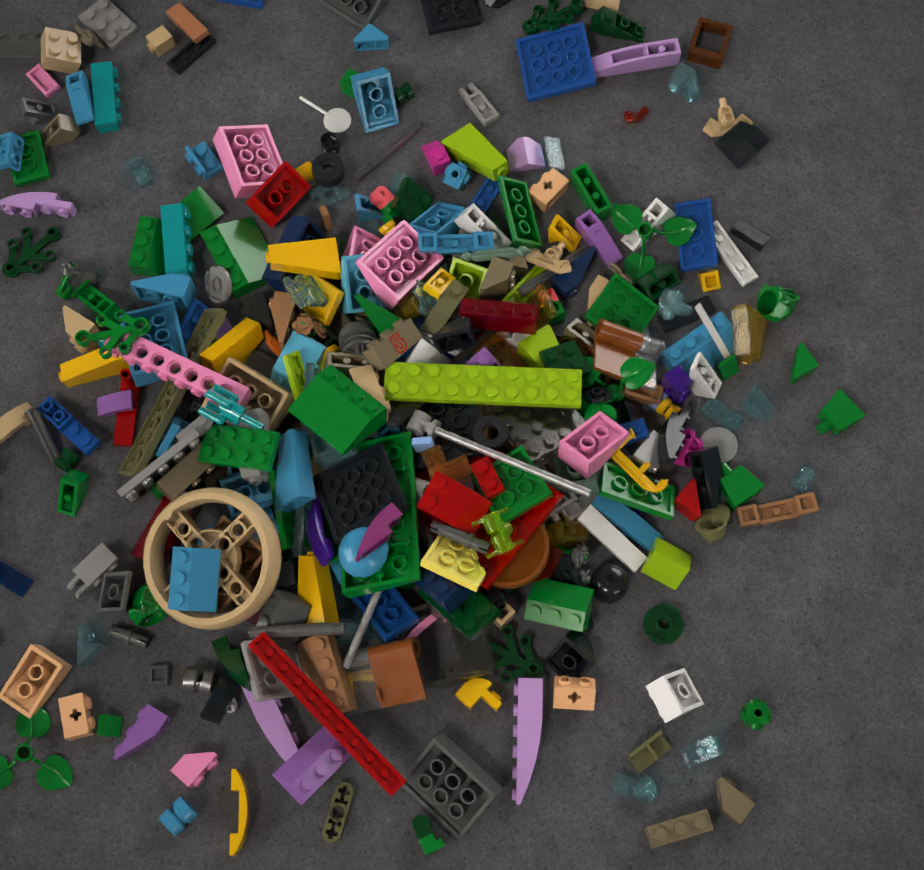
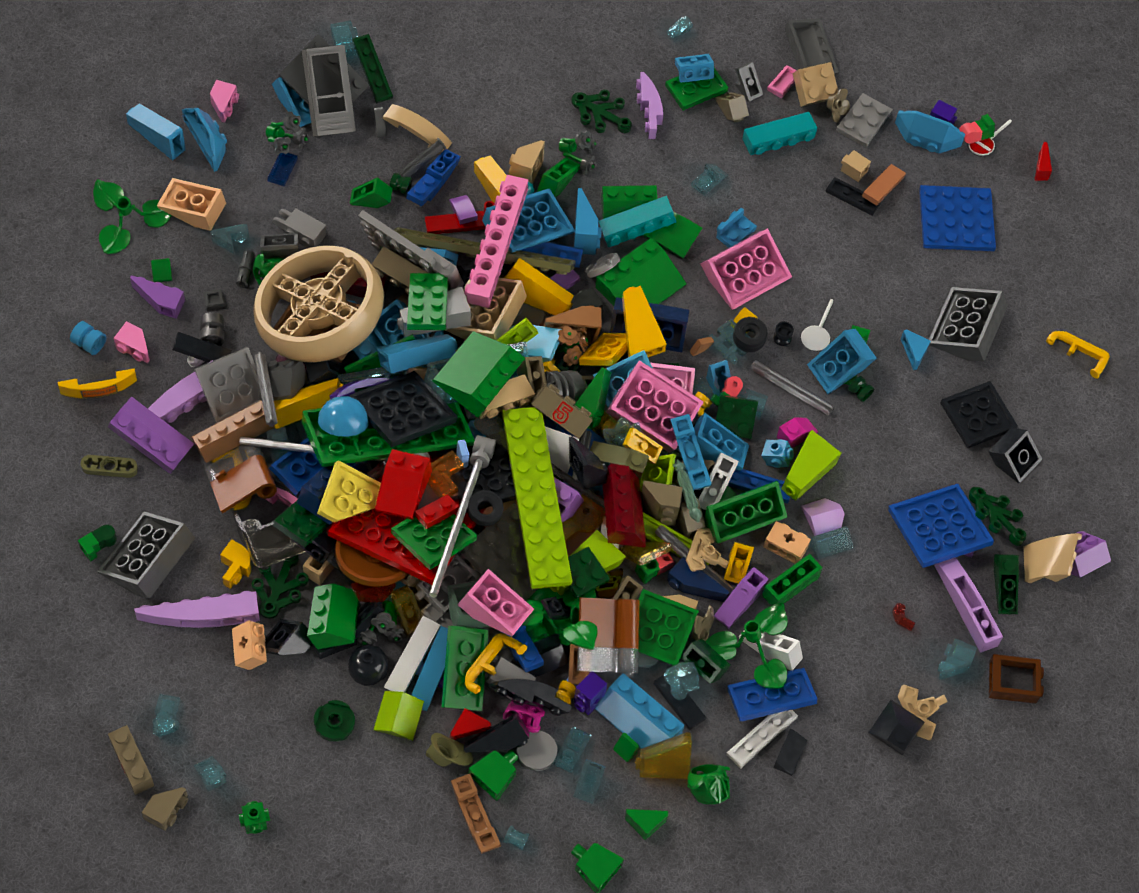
camera: 70 degrees right, 10 degrees down
(69, 709) = (165, 242): light nougat brick -> none
(80, 97) = (770, 110): dark azure slope -> none
(115, 333) = (528, 196): green plant -> none
(194, 579) = (291, 286): dark azure slope -> none
(228, 408) = (460, 281): teal plant -> none
(232, 661) = (234, 344): dark green slope -> none
(278, 194) = (711, 296): red slope -> none
(308, 292) = (609, 336): clear light blue plate -> none
(327, 714) = (191, 428): red plate -> none
(379, 531) = (357, 416): magenta slope -> none
(468, 540) = (369, 502): dark grey pin -> none
(479, 105) = (869, 463): light grey hinge -> none
(499, 531) = (381, 526): clear neon green hose -> none
(649, 752) = (204, 724): olive panel -> none
(674, 695) = (263, 740): white slope -> none
(704, 378) = (602, 713): white slope -> none
(709, 280) = (725, 718): yellow slope -> none
(711, 329) = (656, 716): white sticker -> none

